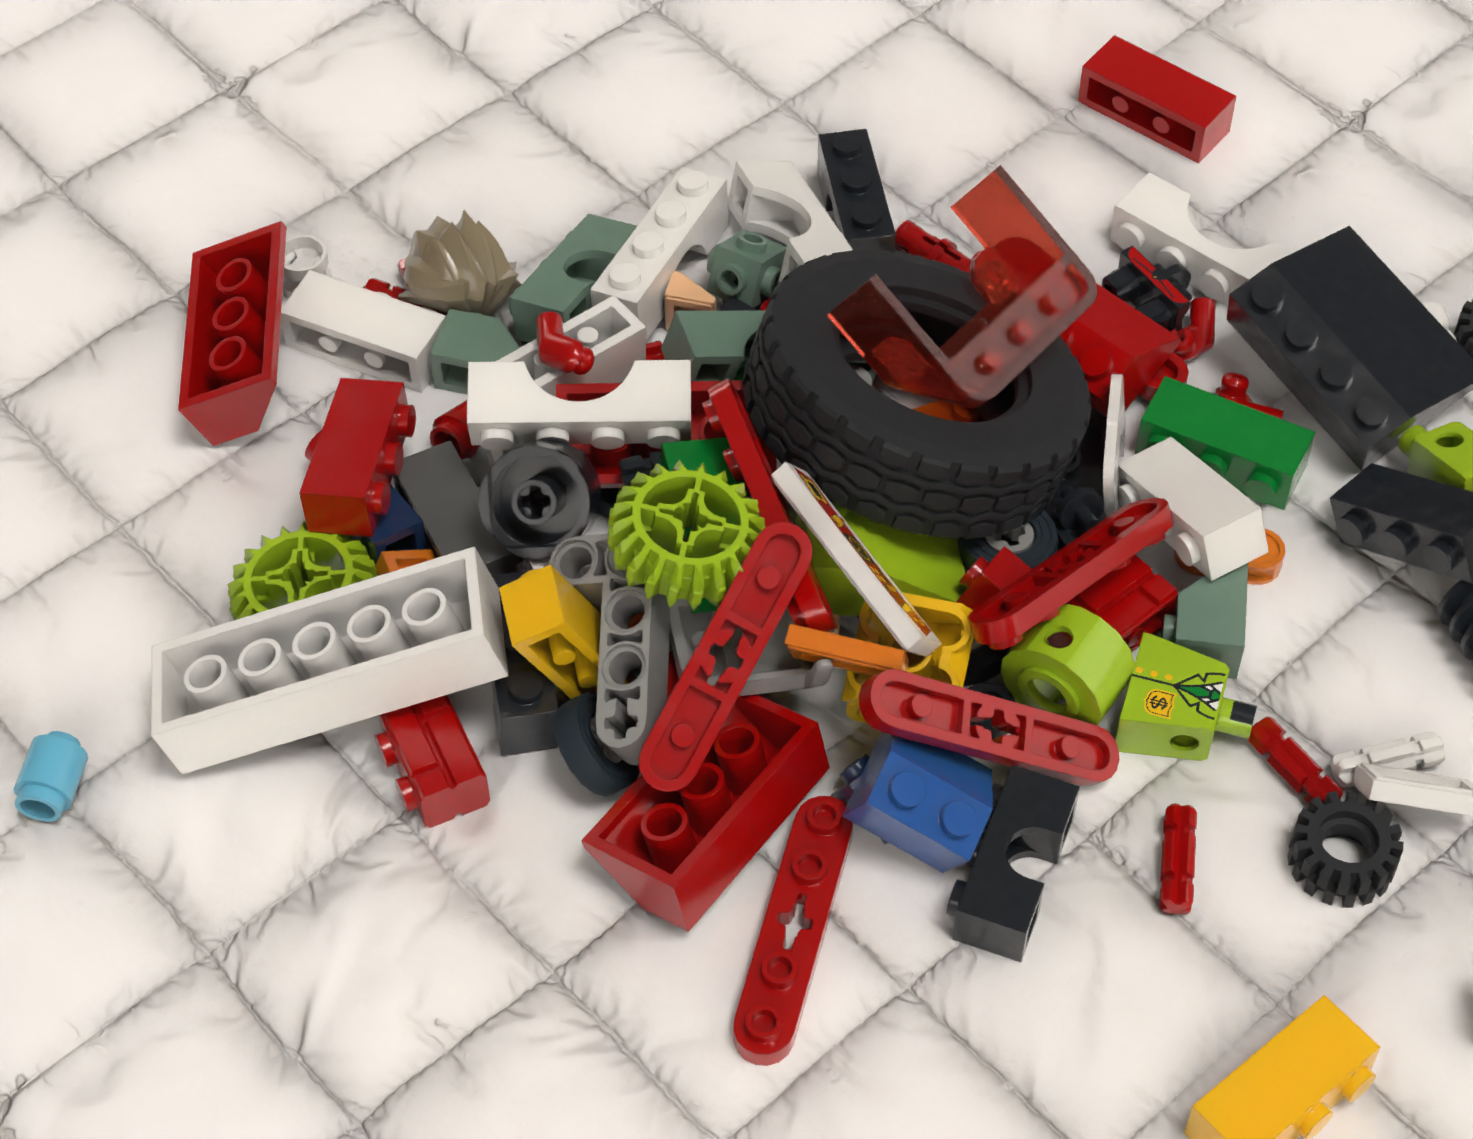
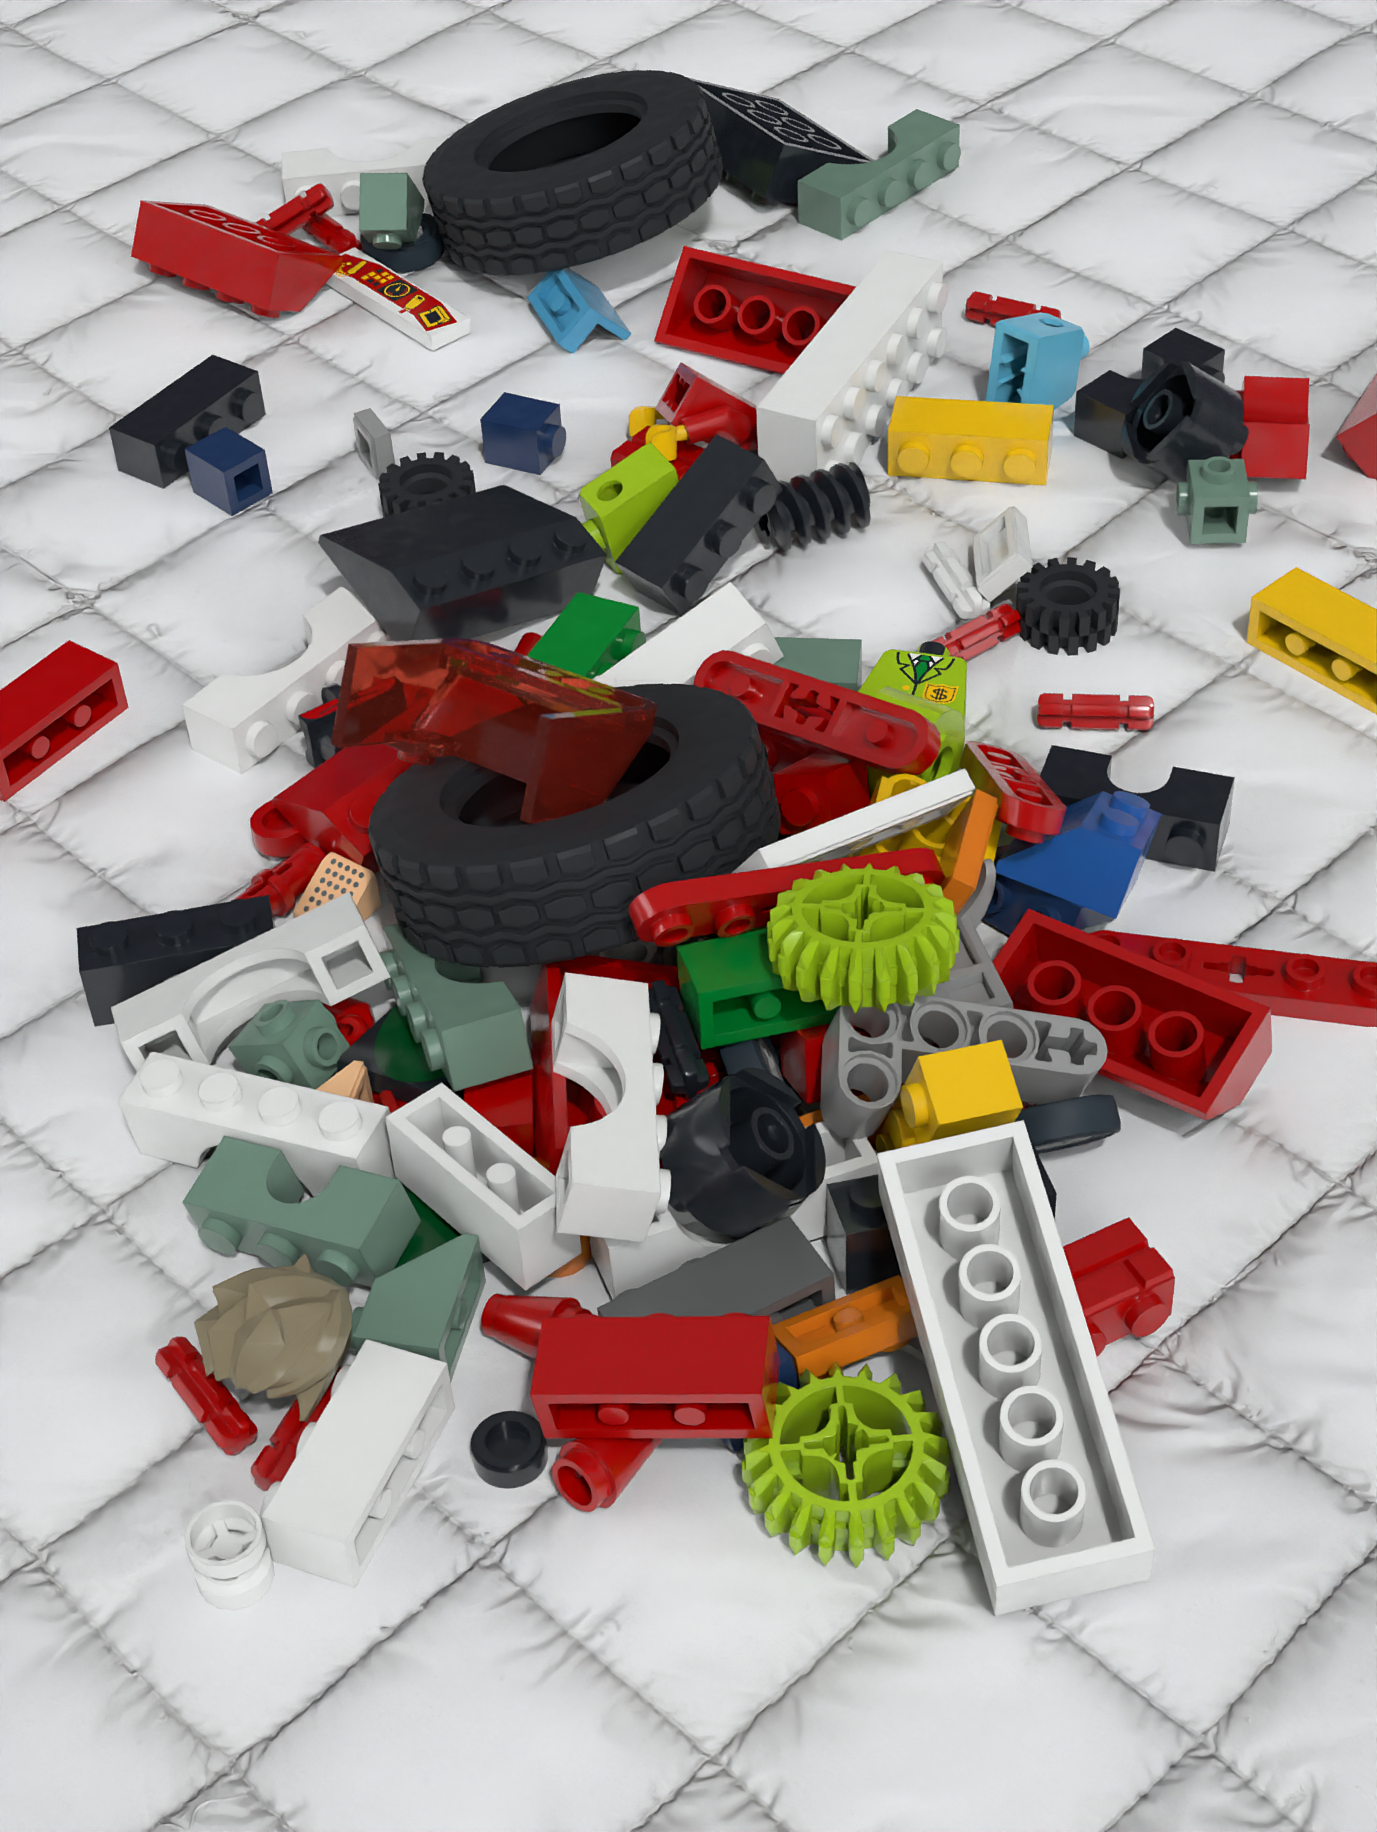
camera: 90 degrees left, 10 degrees down
(50, 776) = (1193, 1726): medium azure brick -> none
(233, 333) = (384, 1576): red slope -> none
(559, 350) = (500, 1145): red arm -> none
(695, 708) = (1008, 938): red piece -> none

